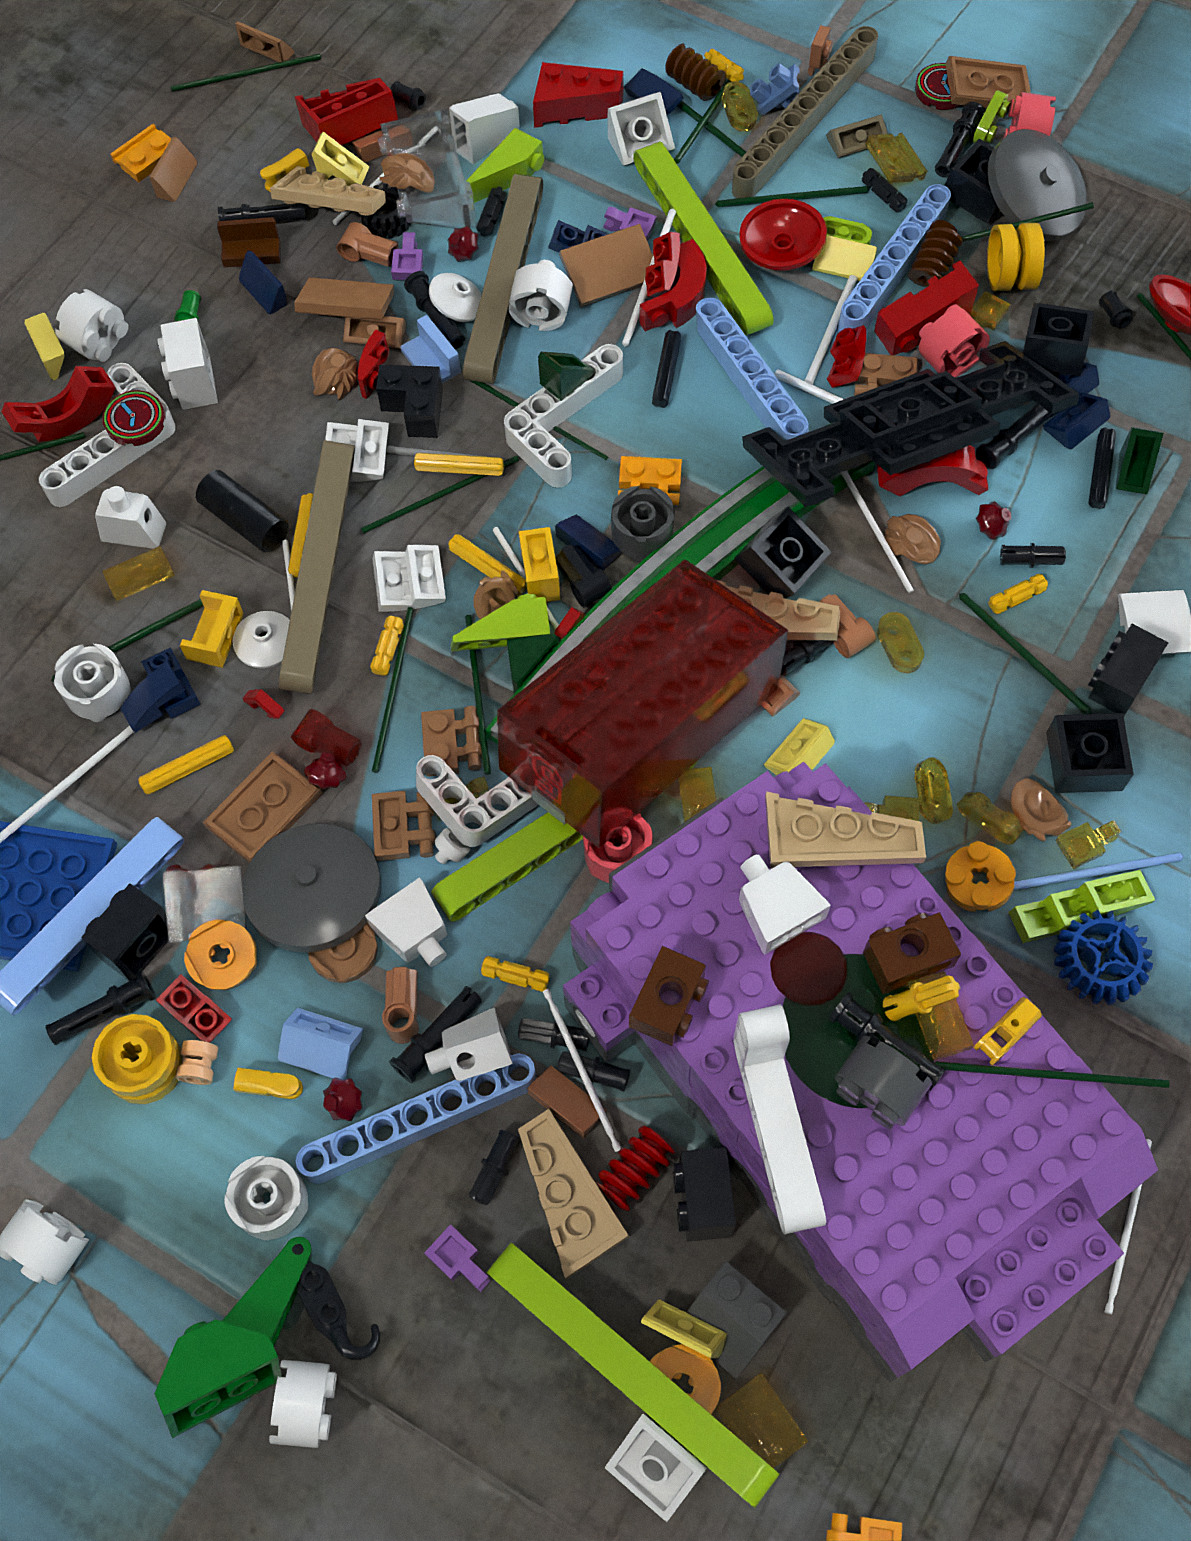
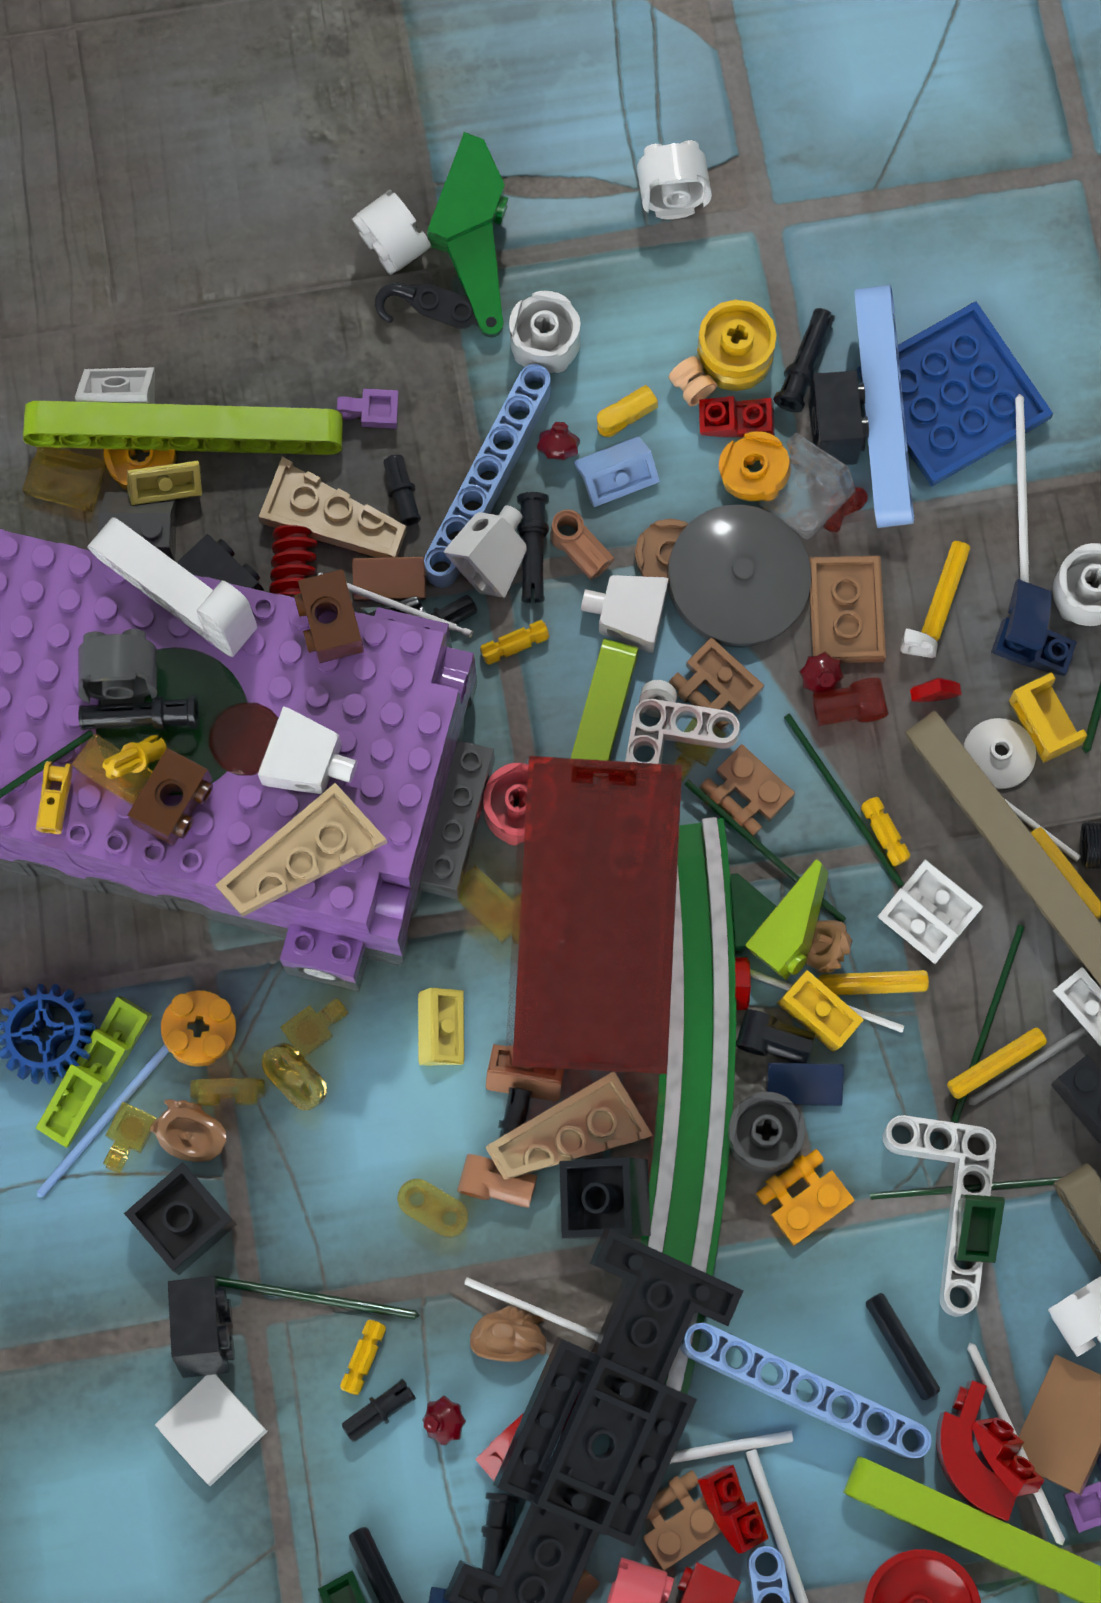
camera: 140 degrees right, 10 degrees up
(243, 743) = (918, 644): none -> white tile

